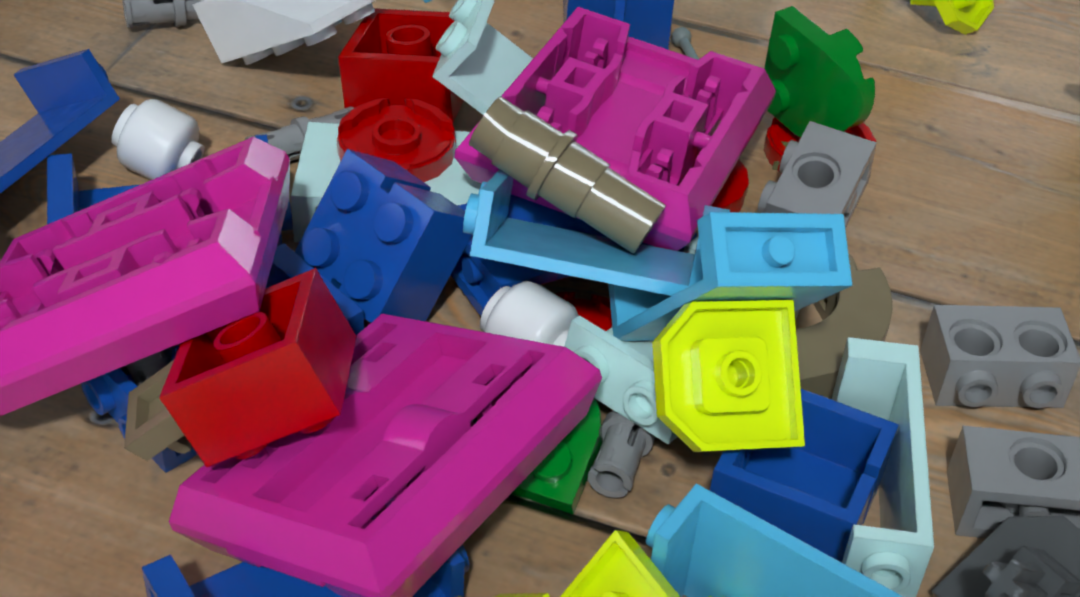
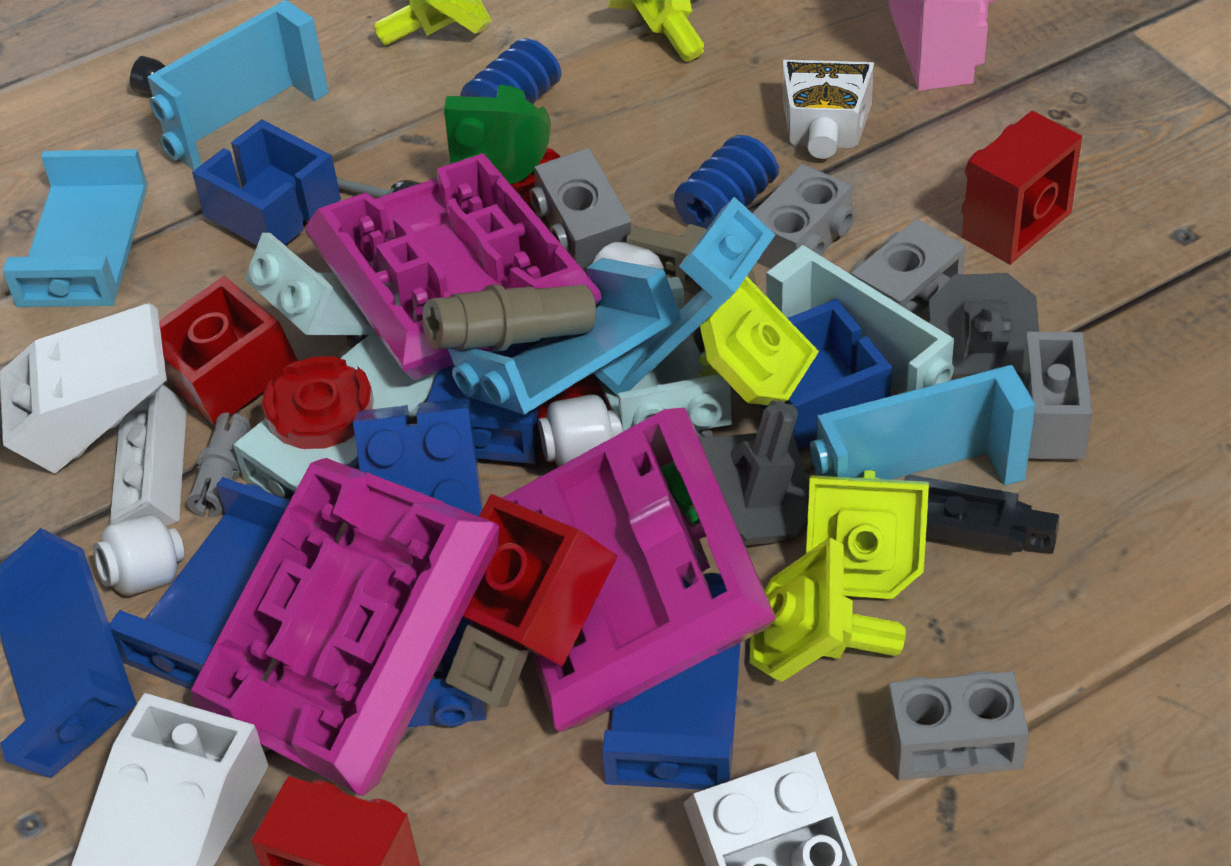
camera: 45 degrees left, 5 degrees up
(274, 103) = (150, 459): none -> white slope
(600, 487) = (763, 477): none -> dark grey piece
(916, 68) = (522, 66): none -> blue piece
(975, 269) = (735, 170): none -> blue piece

